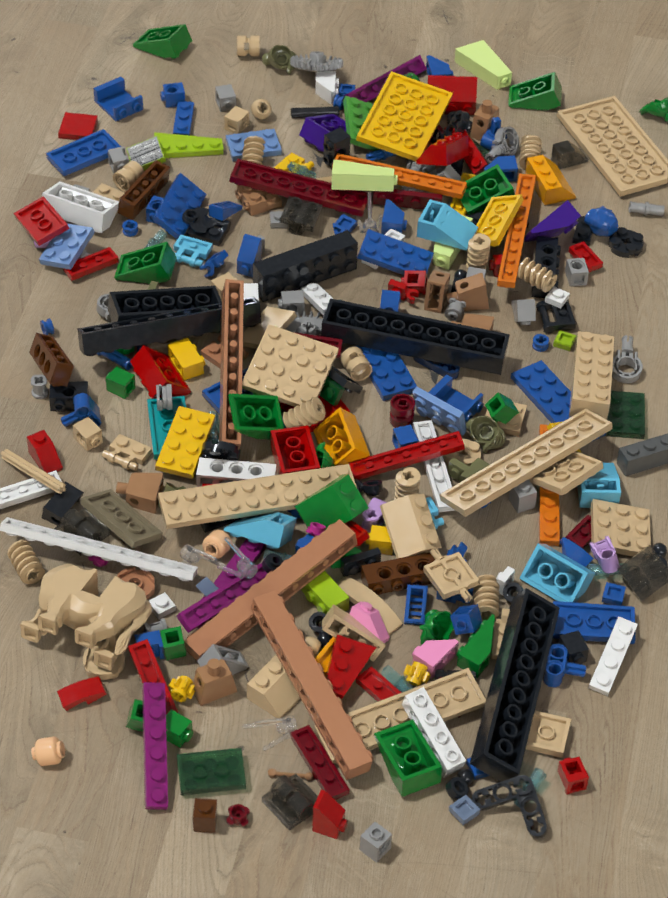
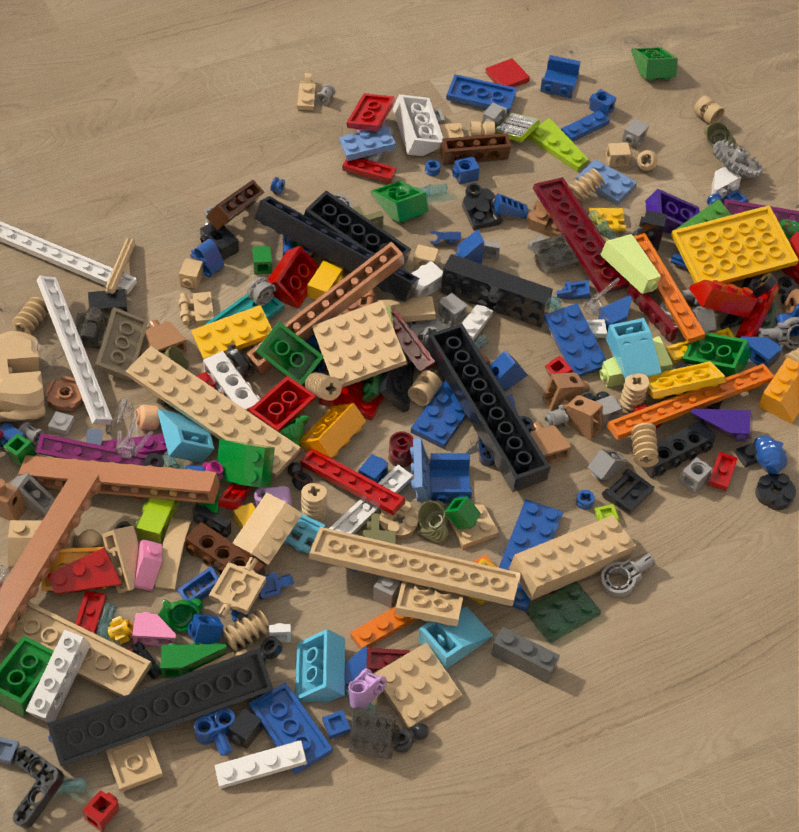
camera: 50 degrees right, 5 degrees up
(44, 452) = (148, 261): red slope -> none
(180, 197) = (493, 174): blue plate -> none
(193, 247) = (450, 215): medium azure plate -> none
(313, 111) = (686, 194): black axle -> none
(405, 292) = (540, 368): red plate -> none
(458, 786) = (41, 731): black plate -> none
(557, 297) = (645, 478): white plate -> none

